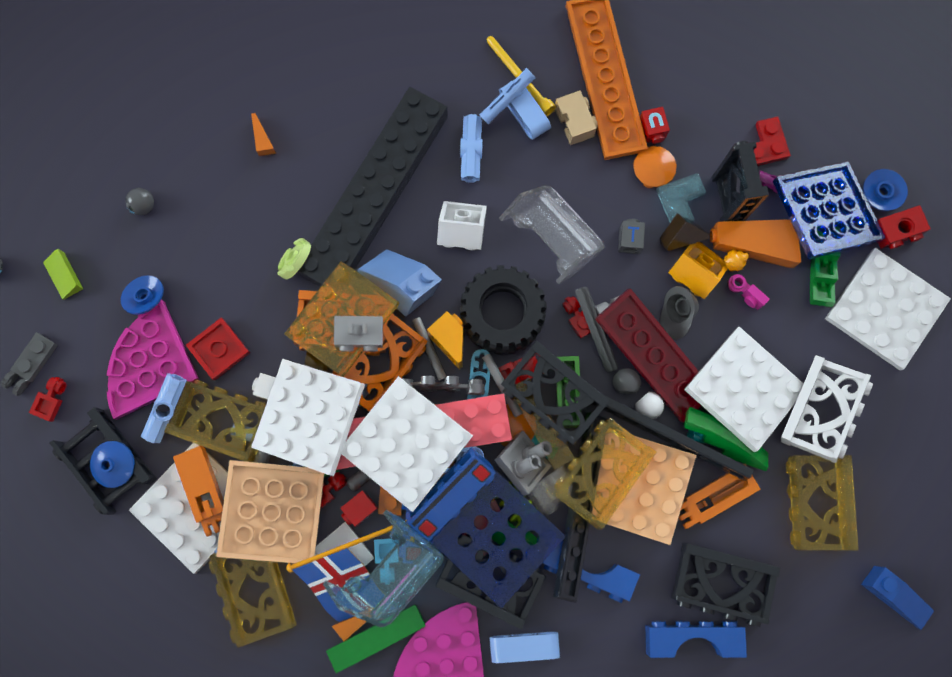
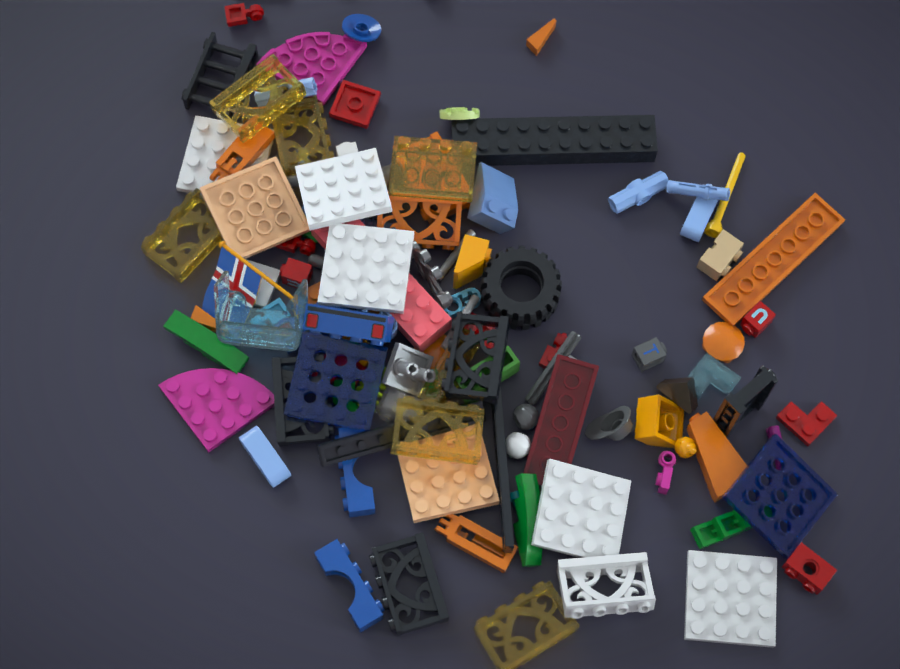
camera: 55 degrees right, 10 degrees down
(120, 461) = (211, 83): blue dish -> none
(133, 437) = (258, 116): none -> clear yellow fence
(358, 332) = (428, 182): light grey brick -> none
(461, 225) = (570, 220): white slope -> none
(557, 226) = (620, 292): clear windscreen -> none
(892, 185) = (838, 529): blue dish -> none

